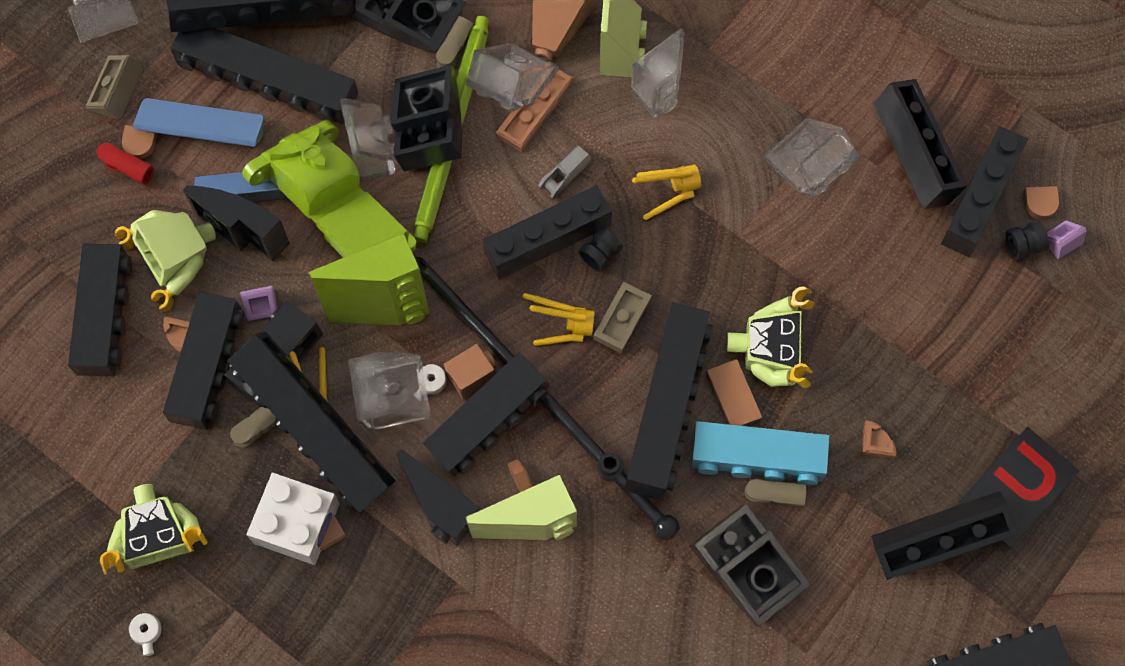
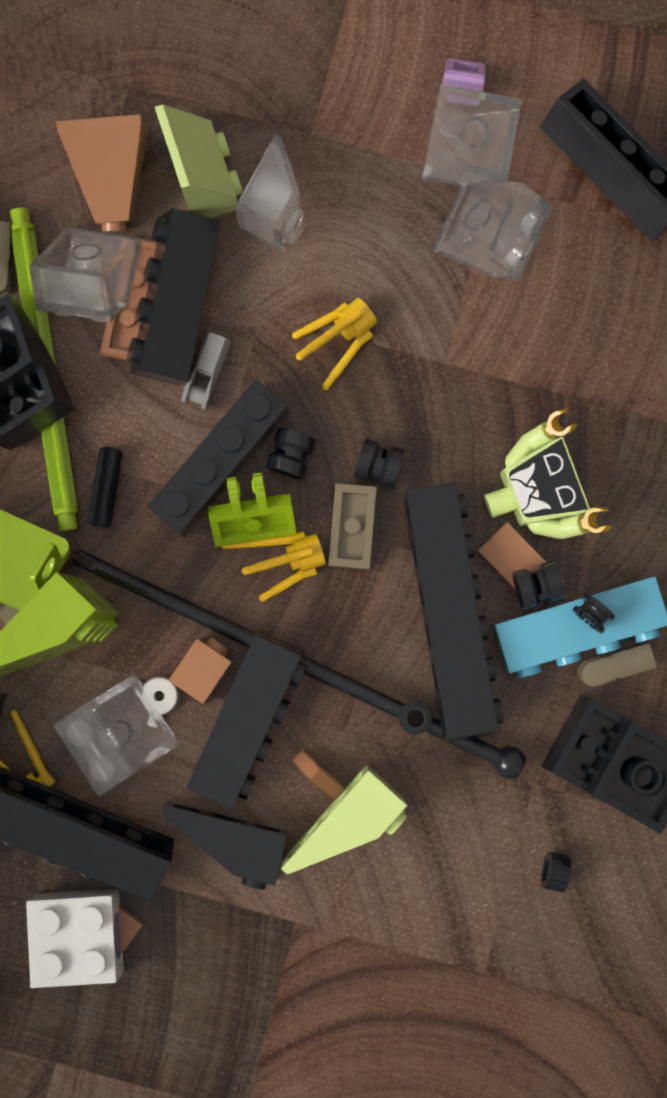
camera: 25 degrees left, 15 degrees up
(458, 221) = (105, 487): none -> black axle
(552, 282) = (253, 518): none -> lime hinge
(564, 113) = (173, 297): none -> black brick
(661, 281) = (379, 463): none -> black wheel
(667, 623) = (556, 872): none -> black axle
(740, 407) = (538, 585): none -> black wheel
(772, 437) = (594, 612): none -> black bush
(818, 87) = (471, 137): none -> clear slope
(831, 53) = (464, 74): none -> lavender slope

